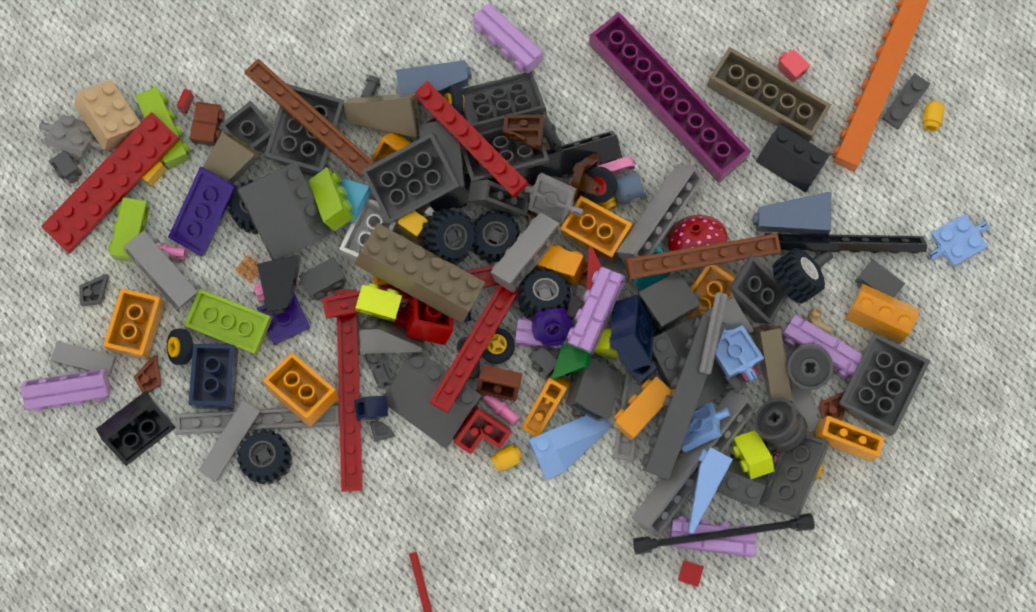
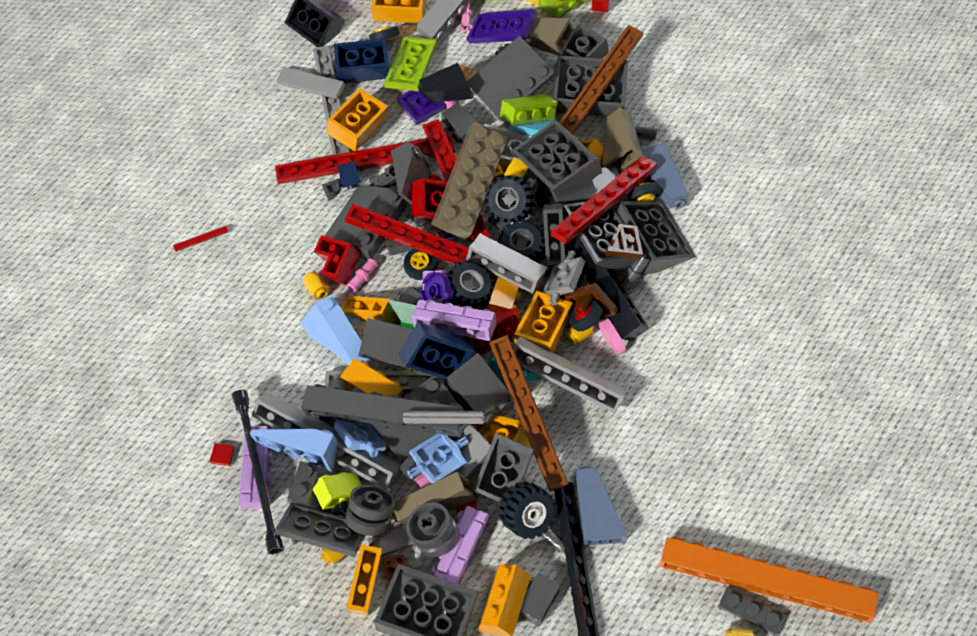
camera: 85 degrees right, 15 degrees down
(149, 376) = (359, 23): copper piece -> none
(206, 123) = (588, 17): copper brick -> none
(264, 456) = (298, 107): black wheel -> none
(378, 302) = (439, 158): neon yellow brick -> none
(499, 382) = (384, 267): copper brick -> none
(507, 38) = (720, 229): lavender brick -> none
(629, 188) = (589, 346): sand blue helmet -> none
(643, 373) = (408, 378): dark blue brick -> none
(669, 97) = (693, 373): magenta brick -> none
(696, 232) = (558, 416): red dish -> none
(768, 94) = (719, 466): dark tan brick -> none
(792, 65) = (760, 487): coral brick -> none
(792, 158) = (657, 498): black slope -> none
(815, 318) = (487, 543): tan arm -> none

